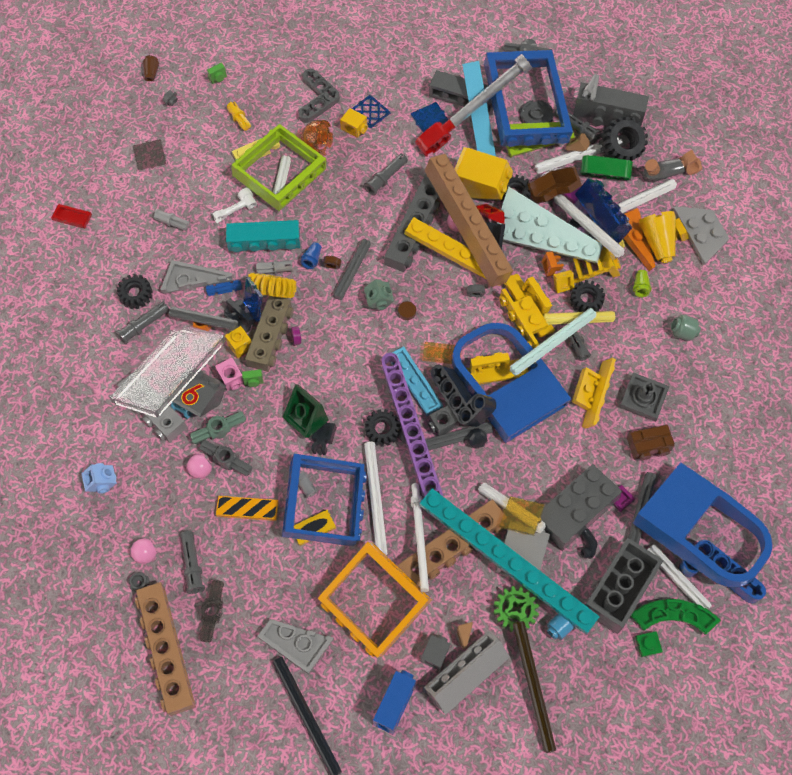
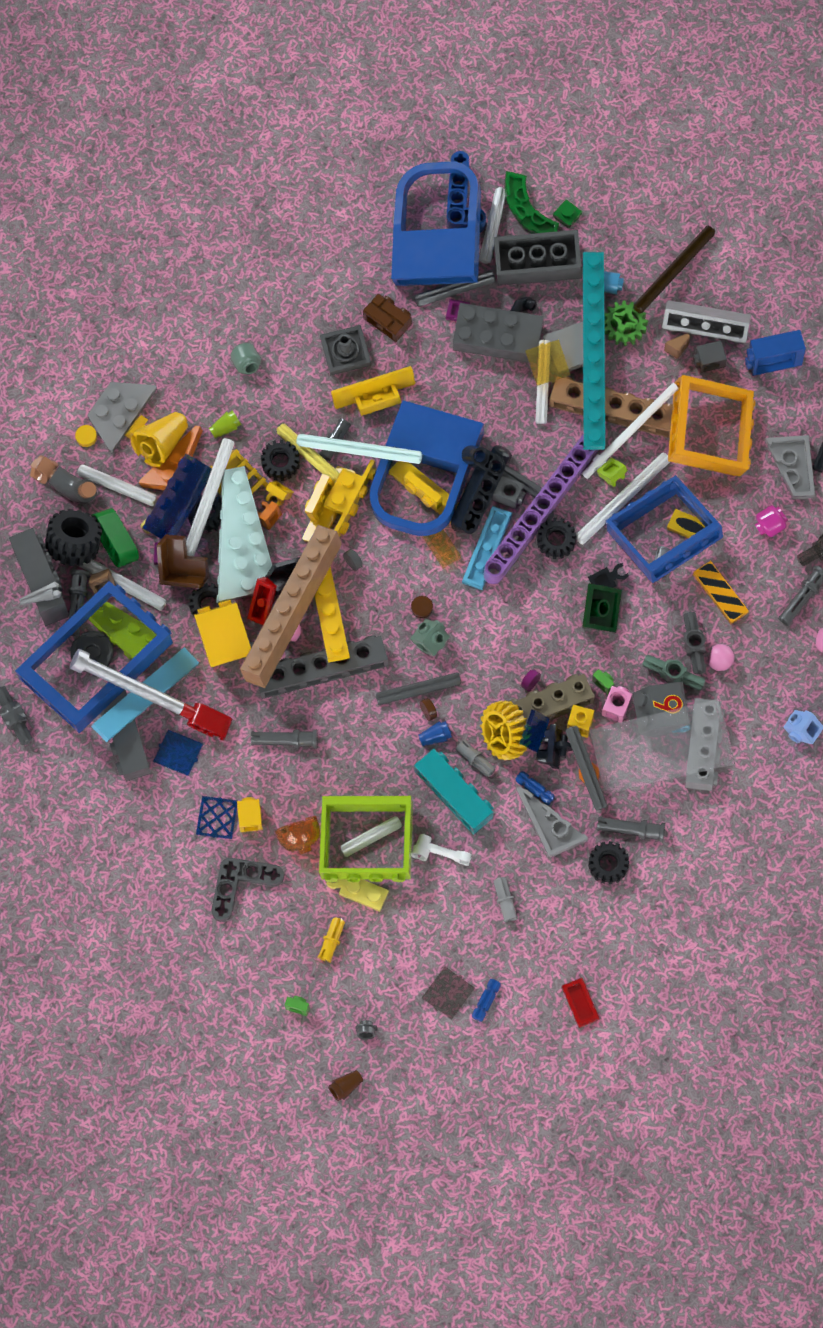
camera: 125 degrees left, 5 degrees up
(124, 169) = (486, 1000): none -> blue axle
(265, 586) = (771, 521): none -> dark pink head
(400, 501) = (612, 471): none -> lime tile
(697, 201) = (86, 436): none -> yellow tile

